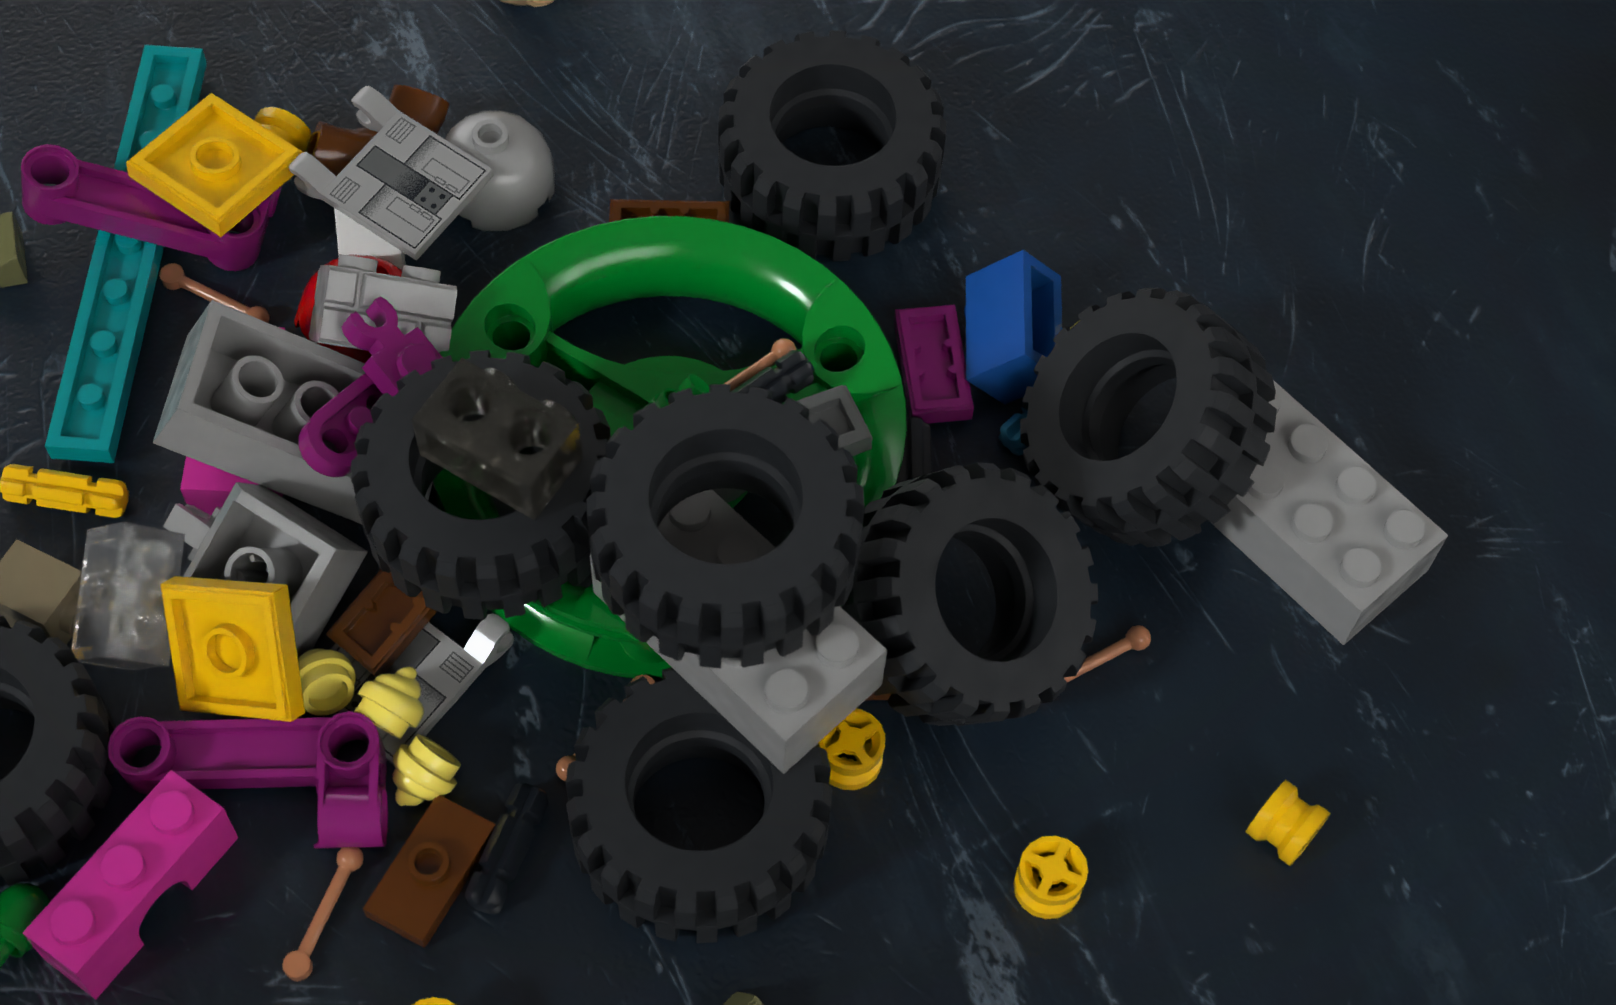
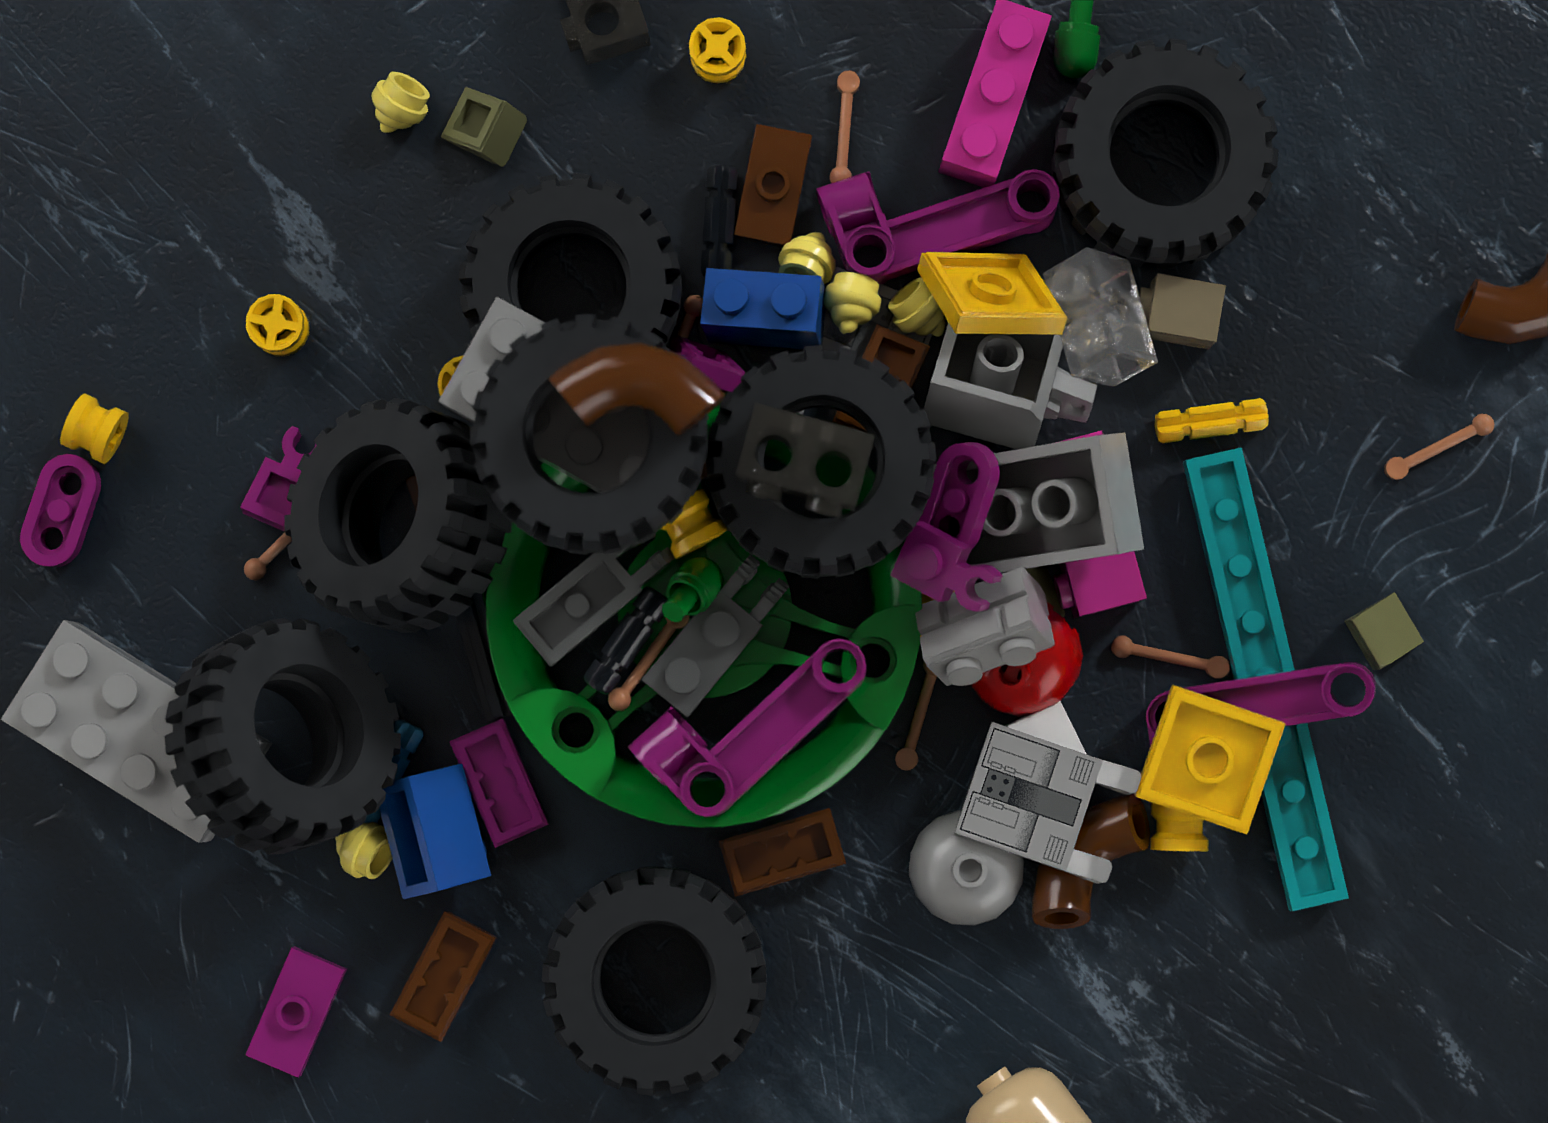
camera: 165 degrees right, 25 degrees up
(490, 720) = (763, 308): none -> blue brick
(574, 664) = (710, 361): none -> magenta plate
(648, 509) = (638, 377): none -> reddish brown cylinder
(702, 348) = (711, 642): none -> dark grey hinge
(738, 271) = (753, 747): none -> magenta piece
(1039, 215) = (443, 976): none -> reddish brown plate
(1087, 704) = (270, 488): none -> magenta plate
(1191, 233) = (296, 1011): none -> magenta plate
(1341, 754) = (55, 509): none -> magenta plate

